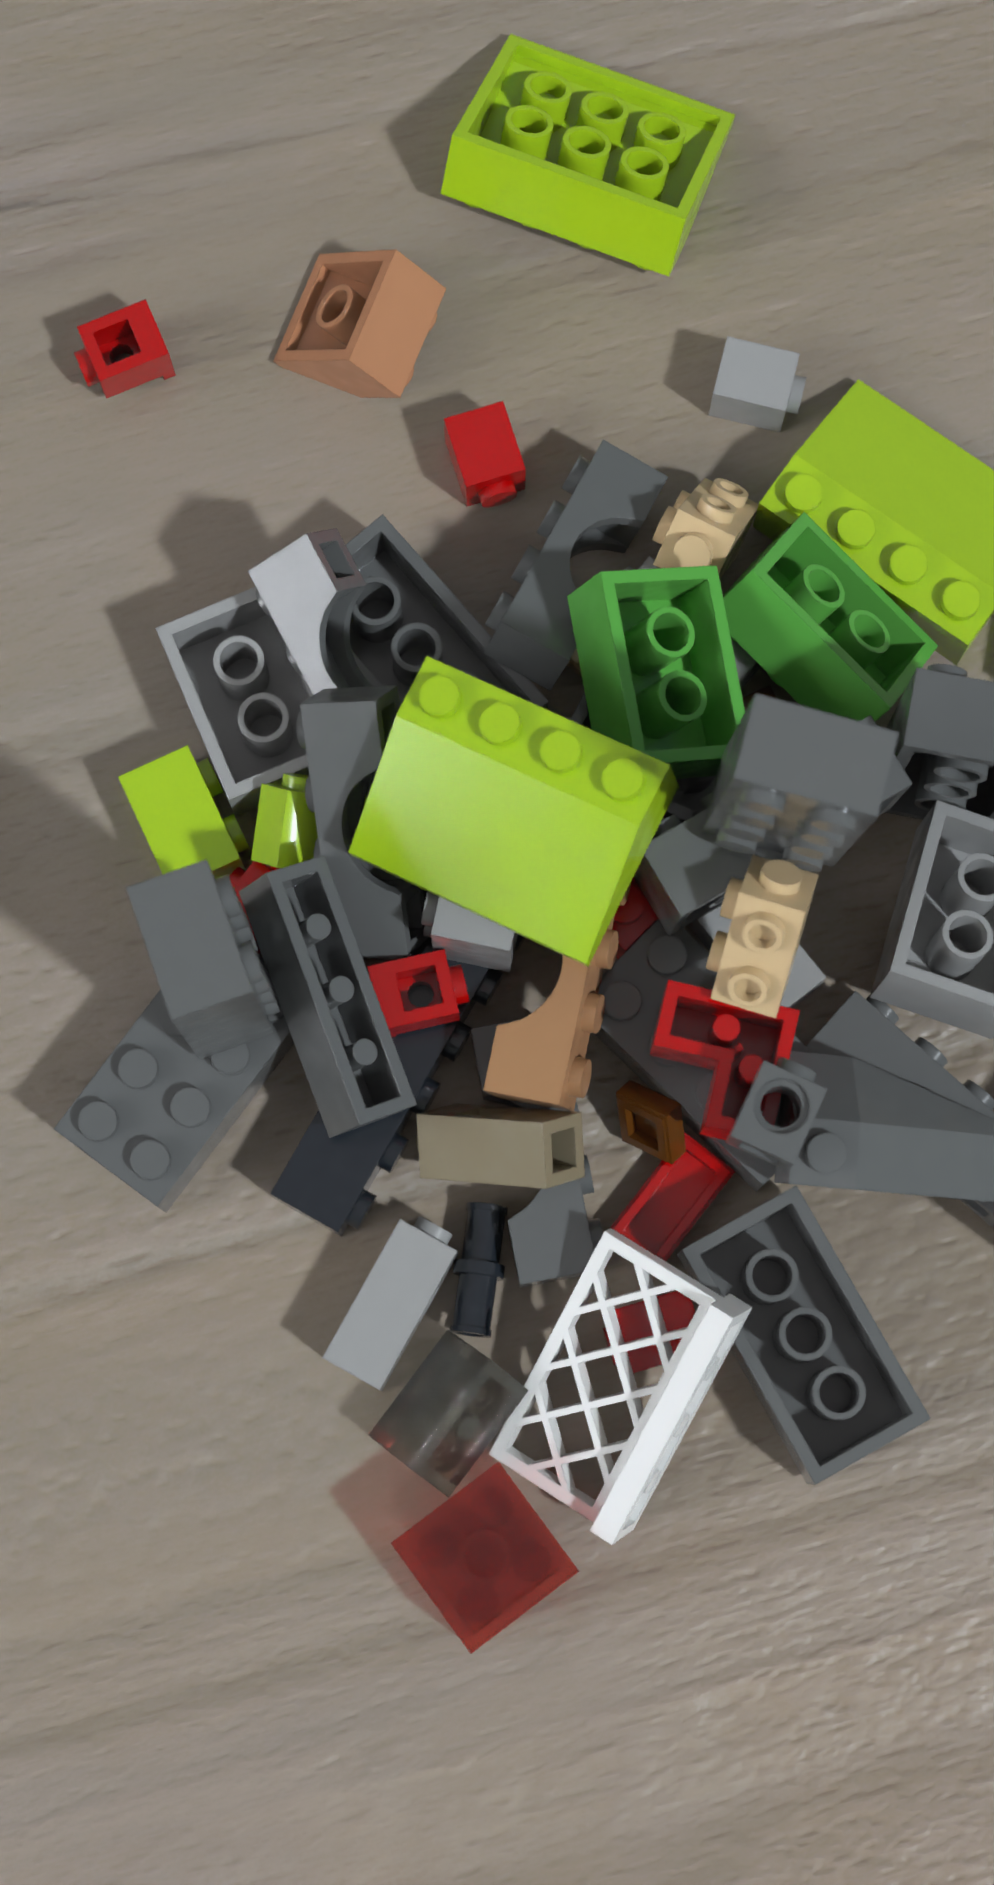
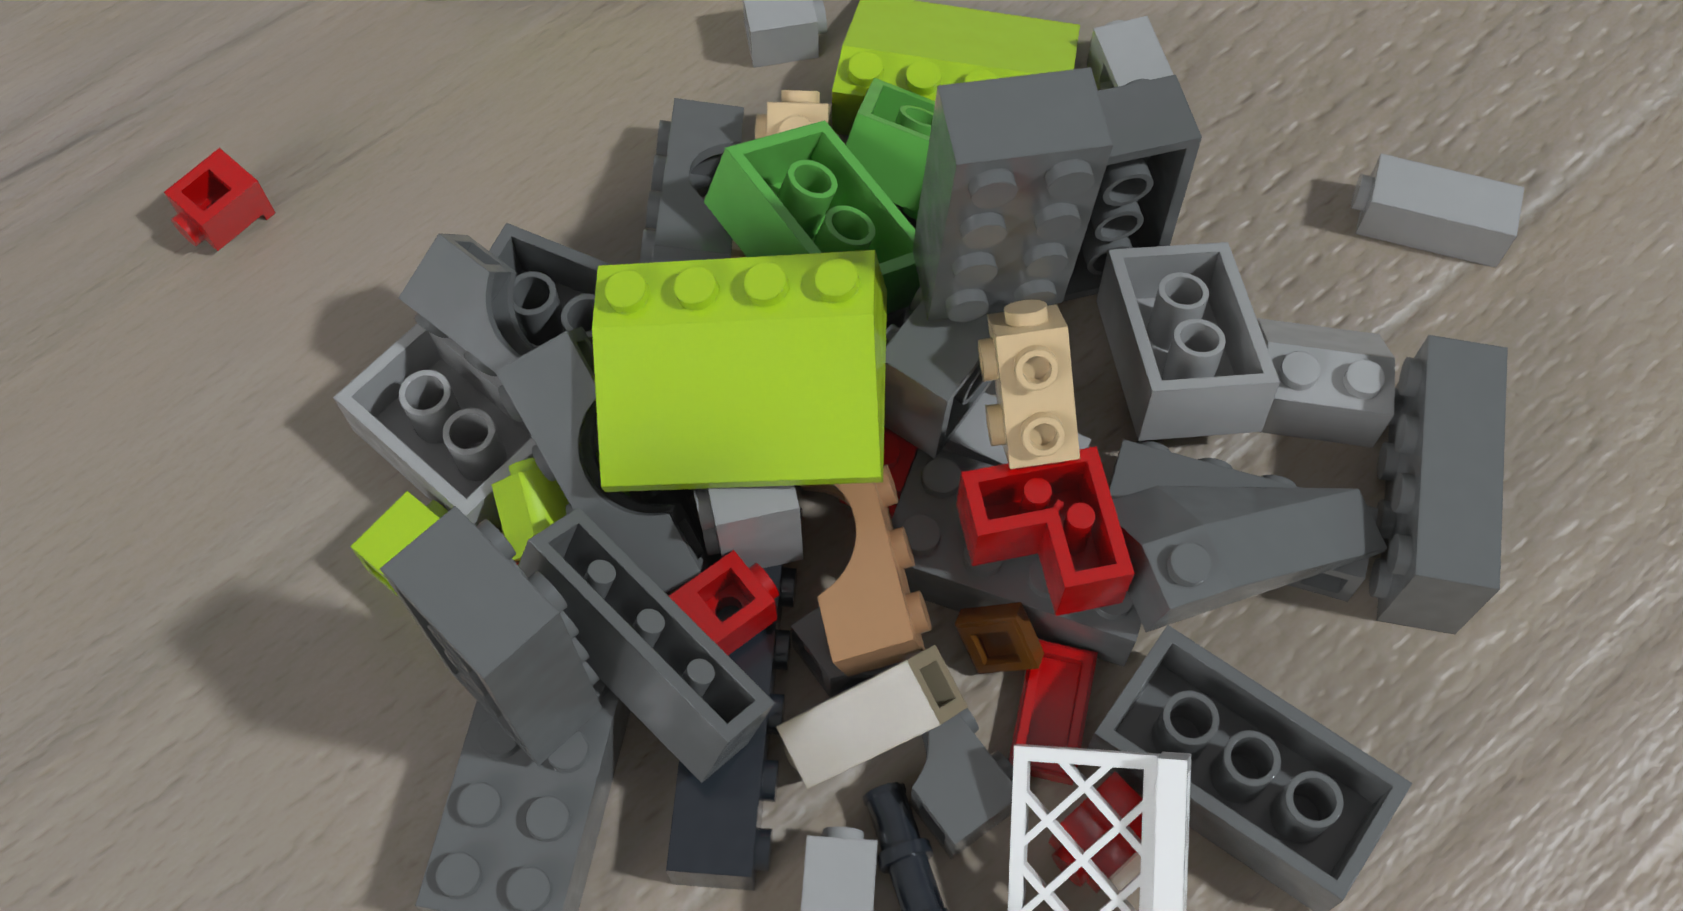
camera: 25 degrees left, 15 degrees down
(361, 322) = (424, 102): nougat slope -> none
(485, 455) = (577, 159): red brick -> none
(771, 1143) = (1124, 565): dark grey brick -> none

